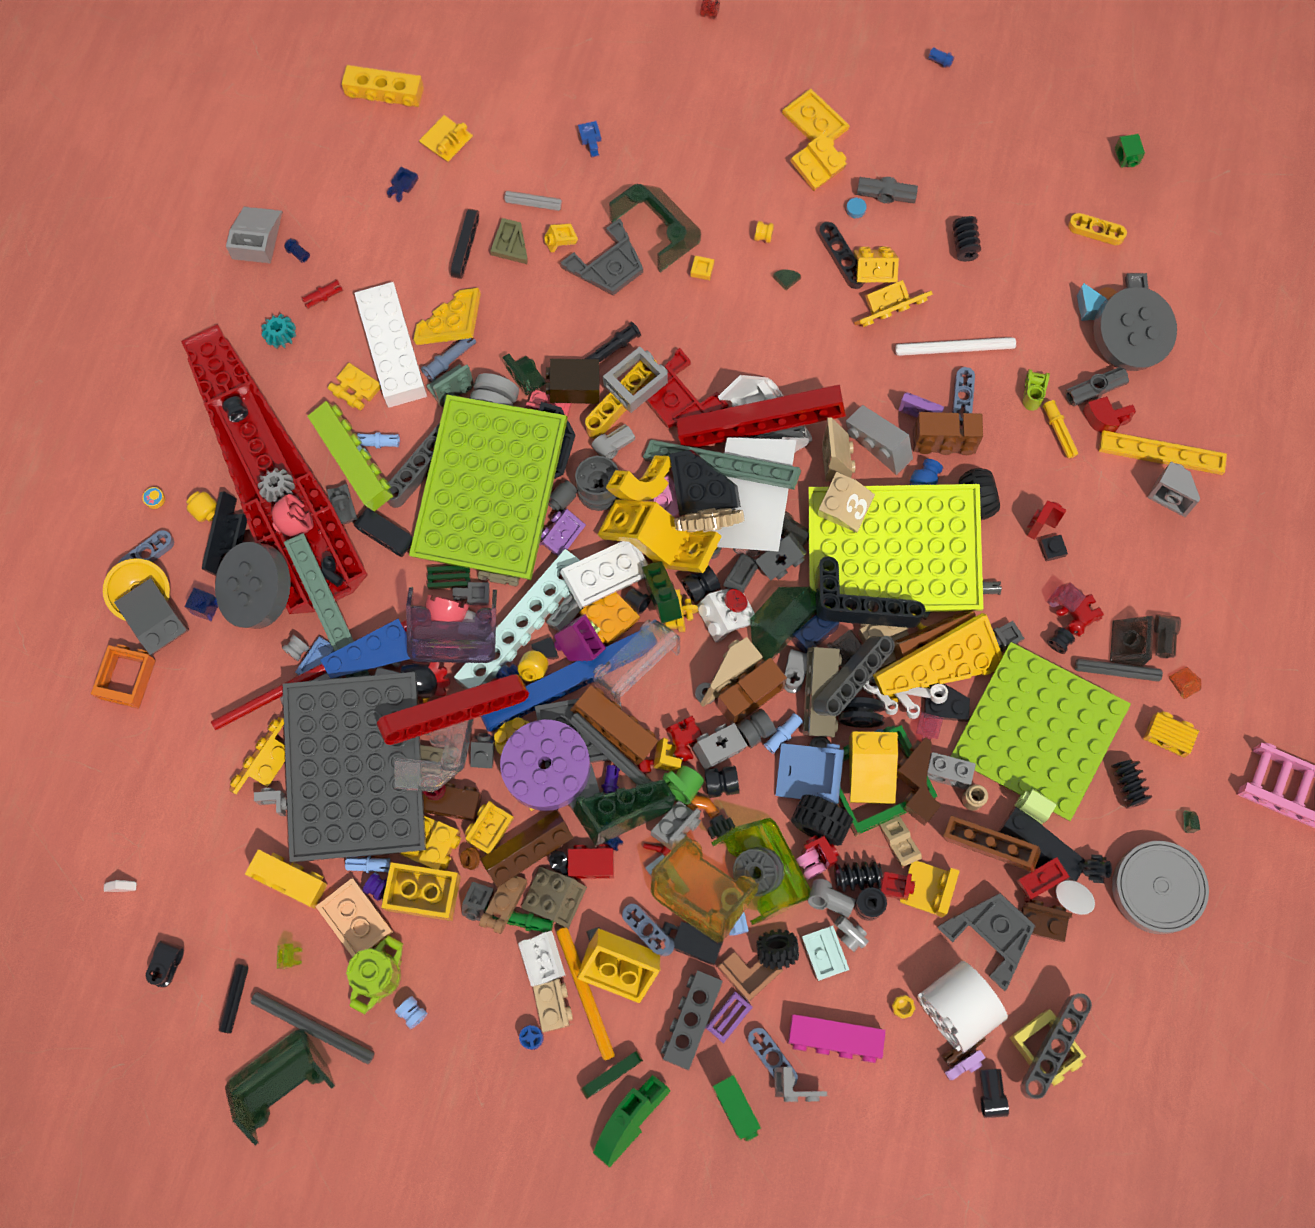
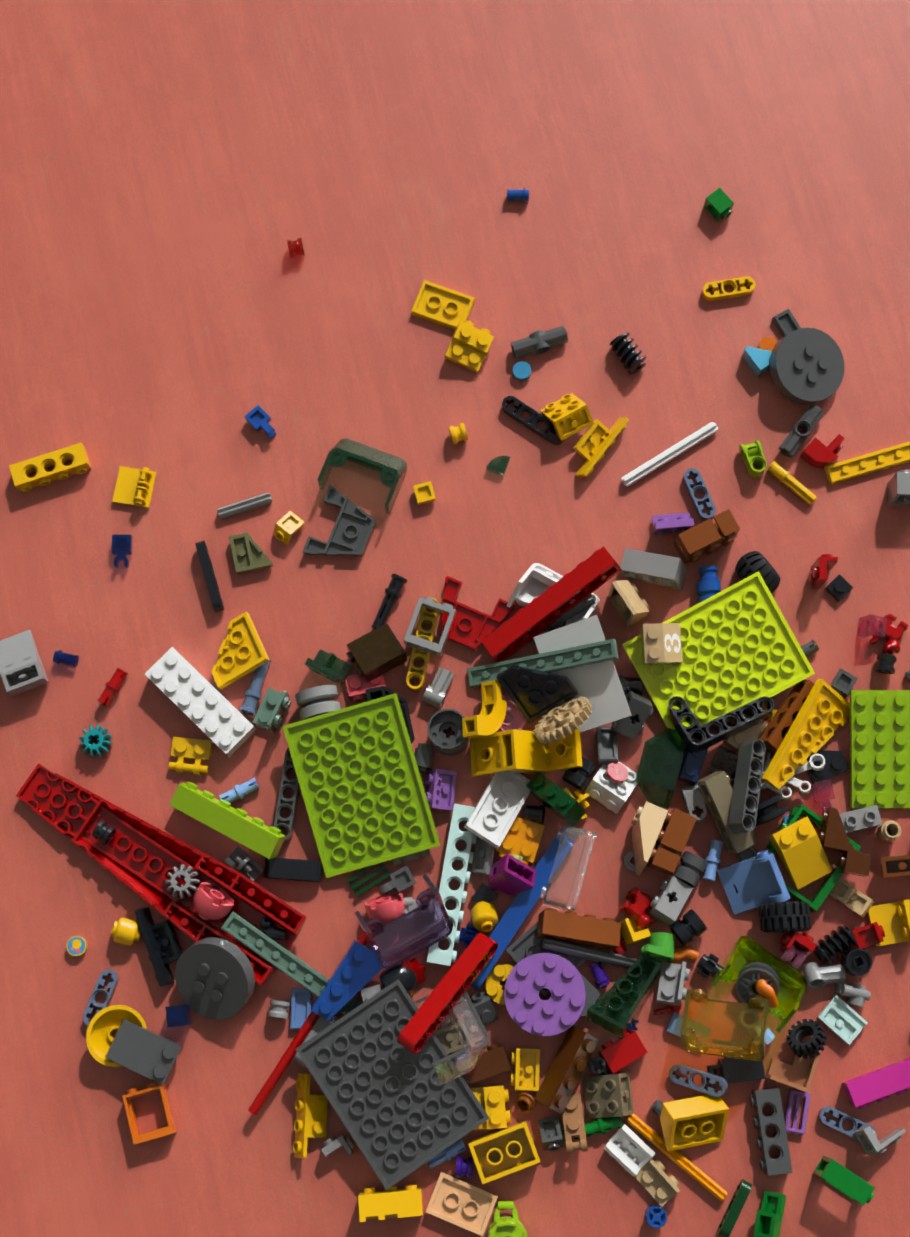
camera: 30 degrees left, 5 degrees up
(762, 878) = (767, 992): none -> orange arm

